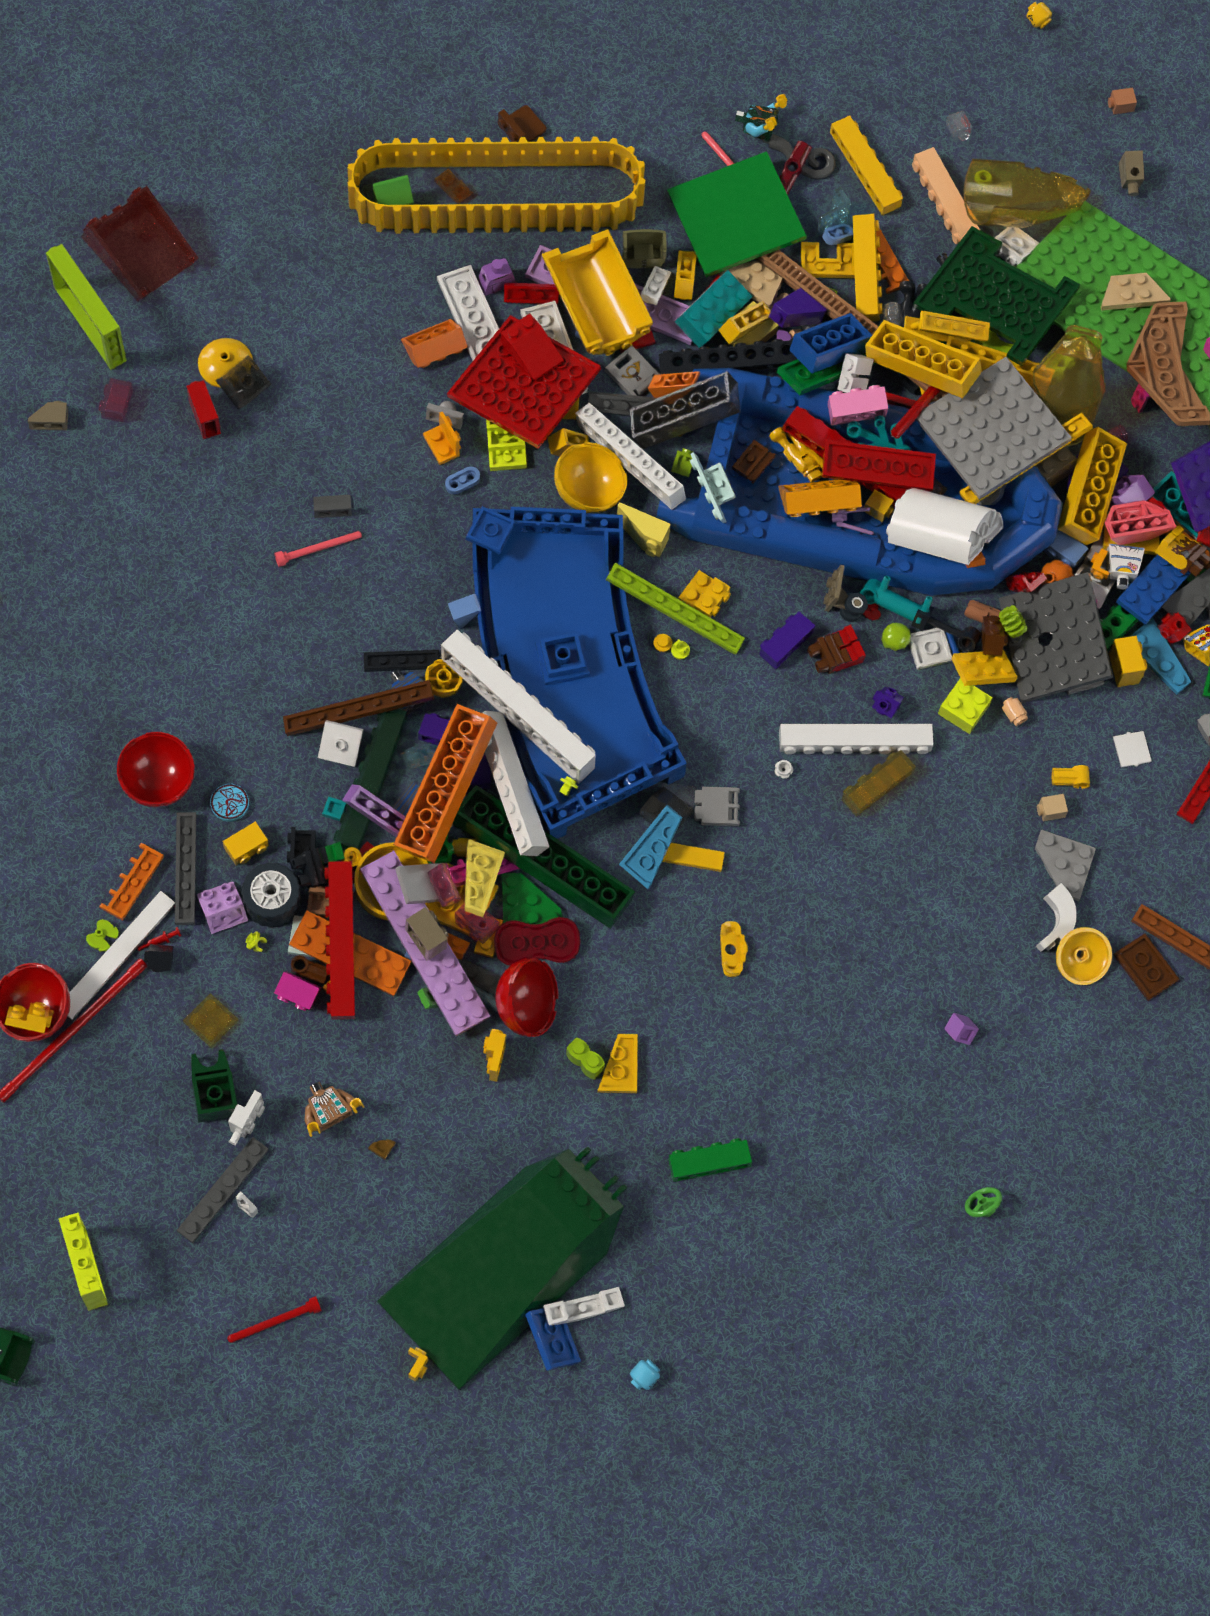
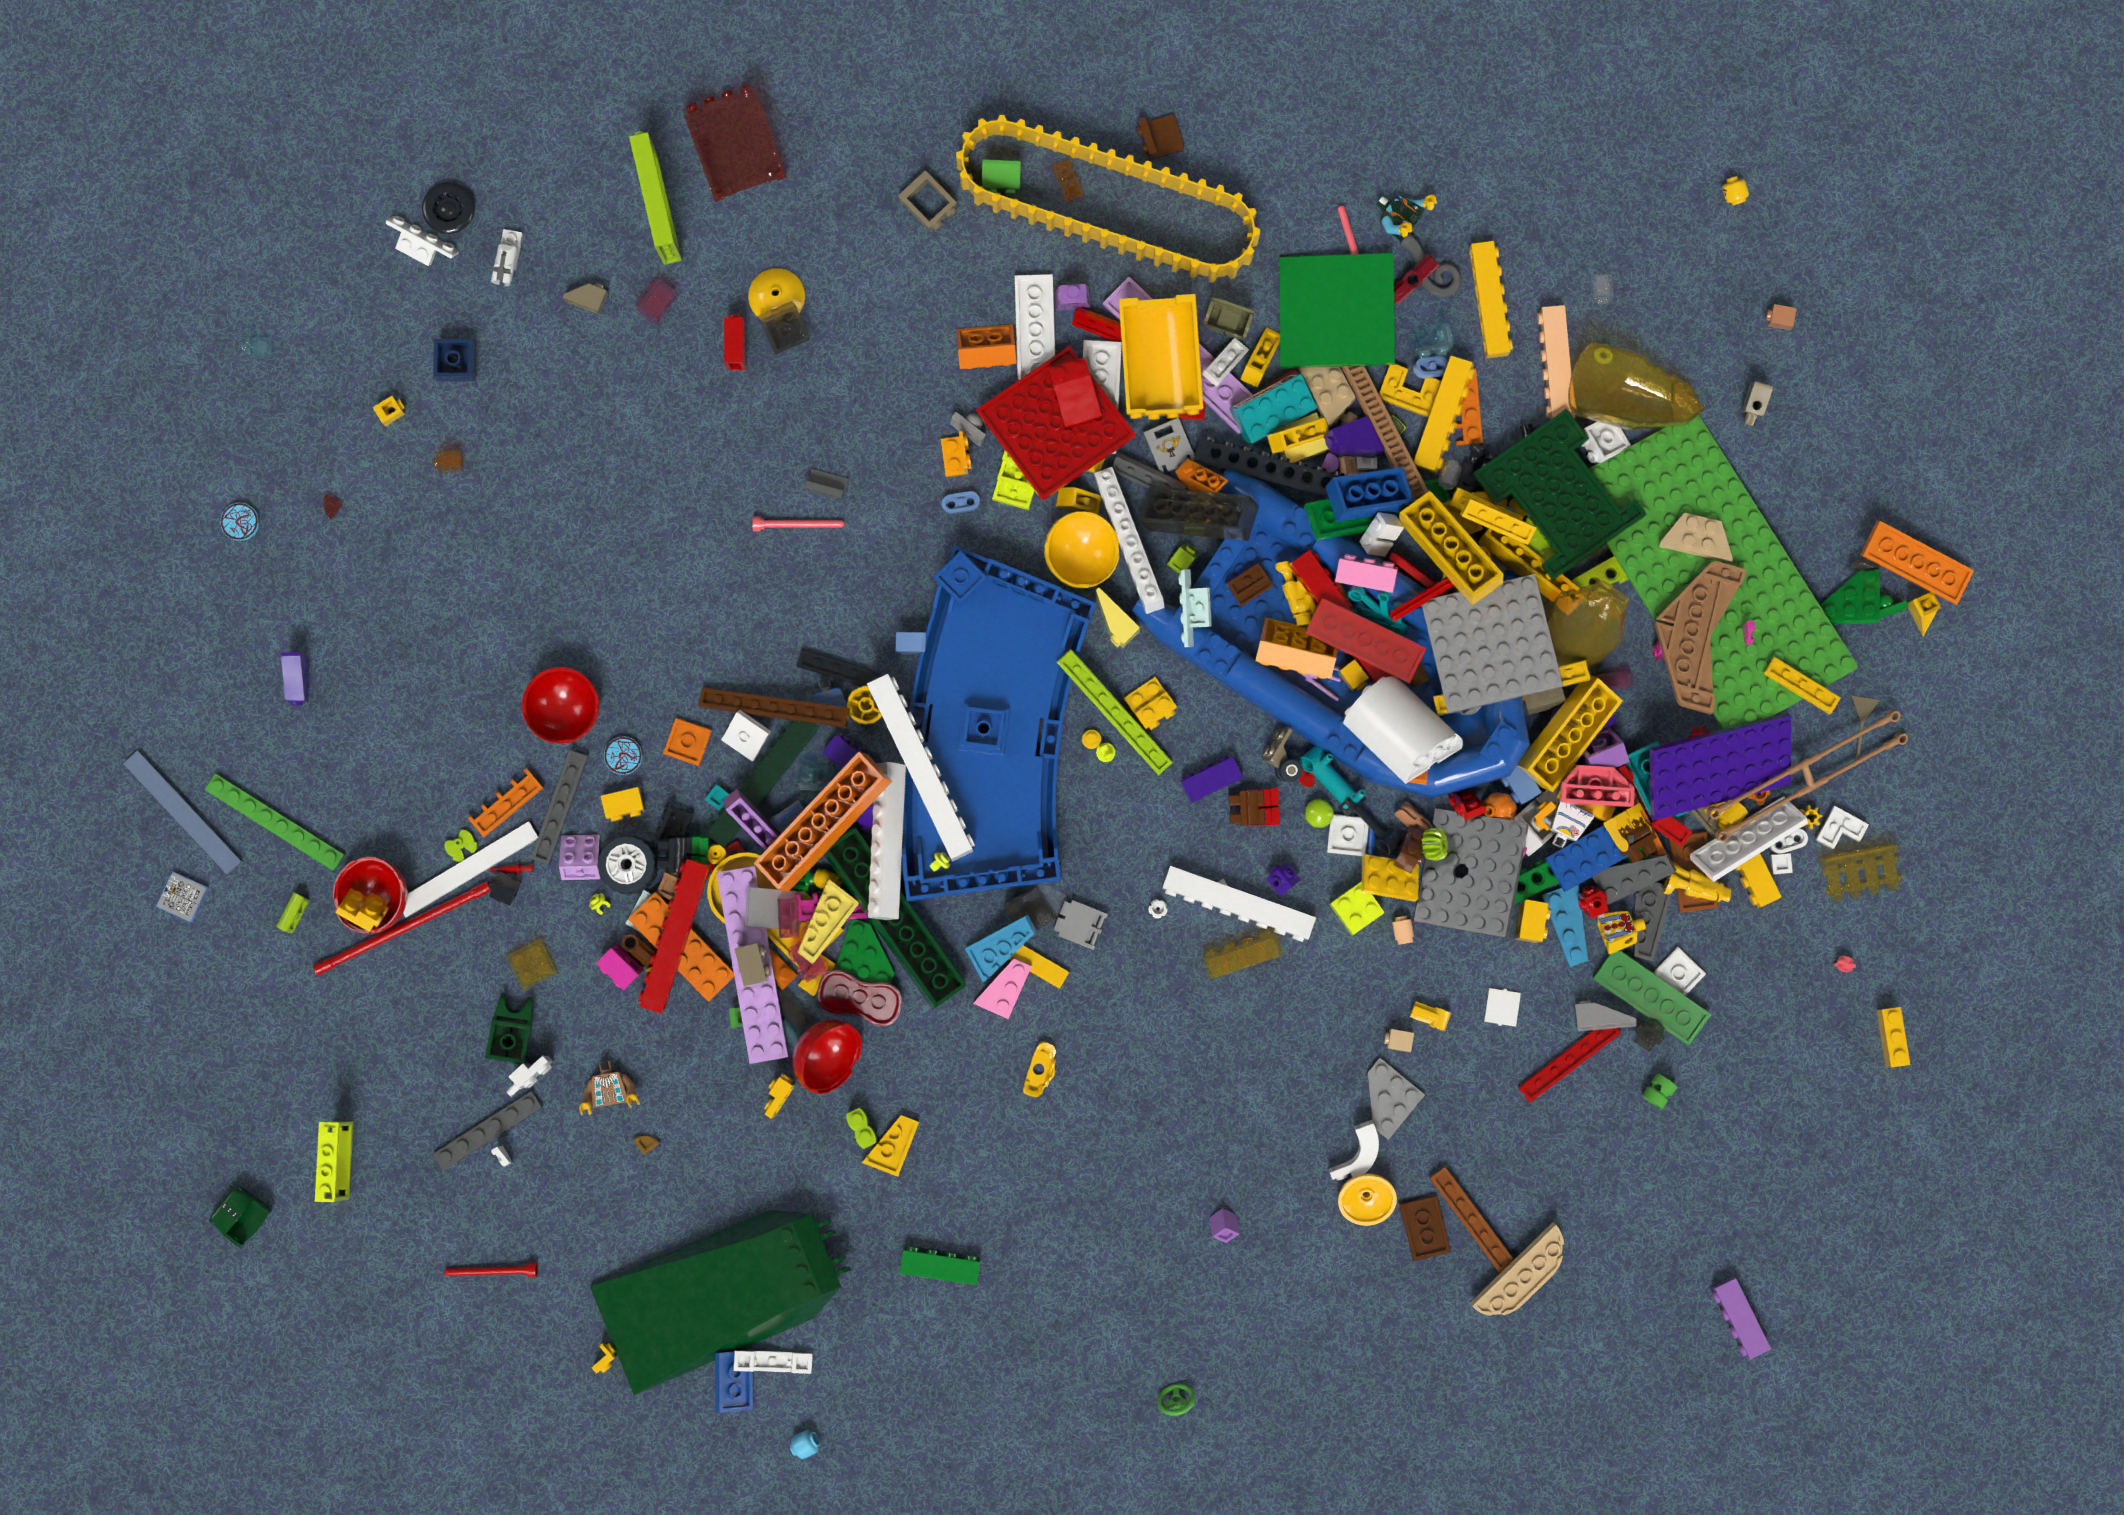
camera: 25 degrees right, 15 degrees up
(286, 770) = (687, 742): none -> orange tile
(313, 242) = (921, 181): none -> dark tan window
(671, 887) = (1005, 989): none -> bright pink wing

